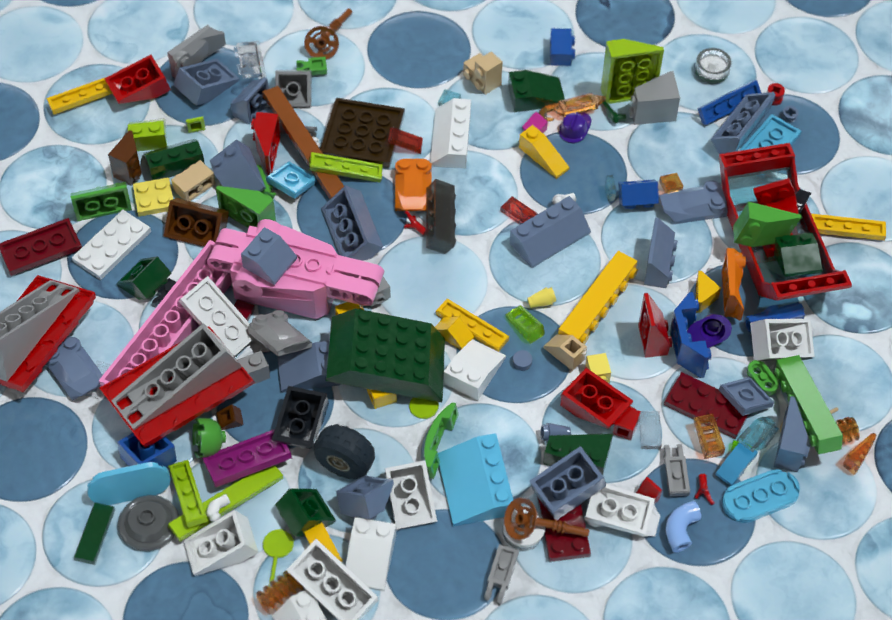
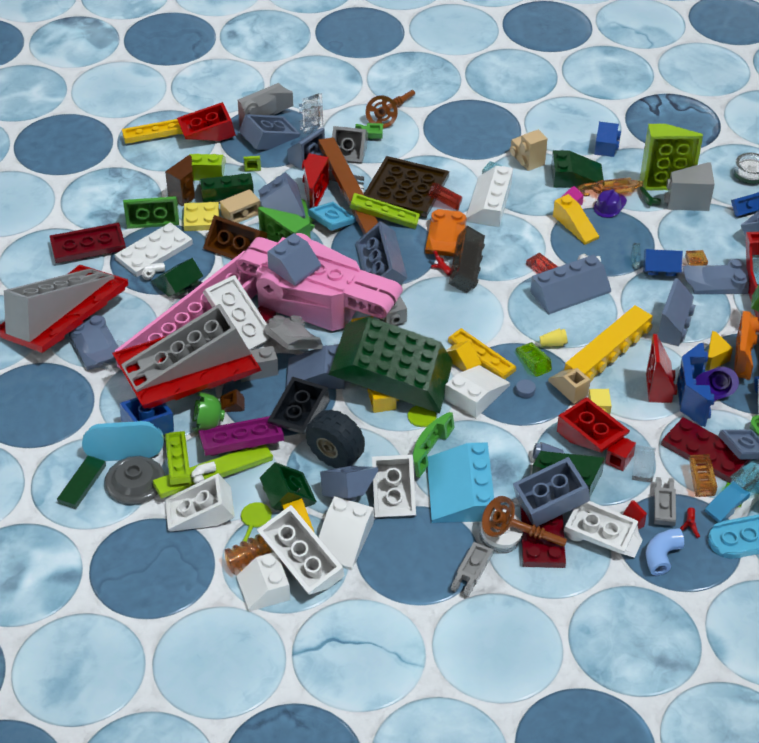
camera: 10 degrees right, 10 degrees down
(114, 270) = (150, 270): none -> white arm

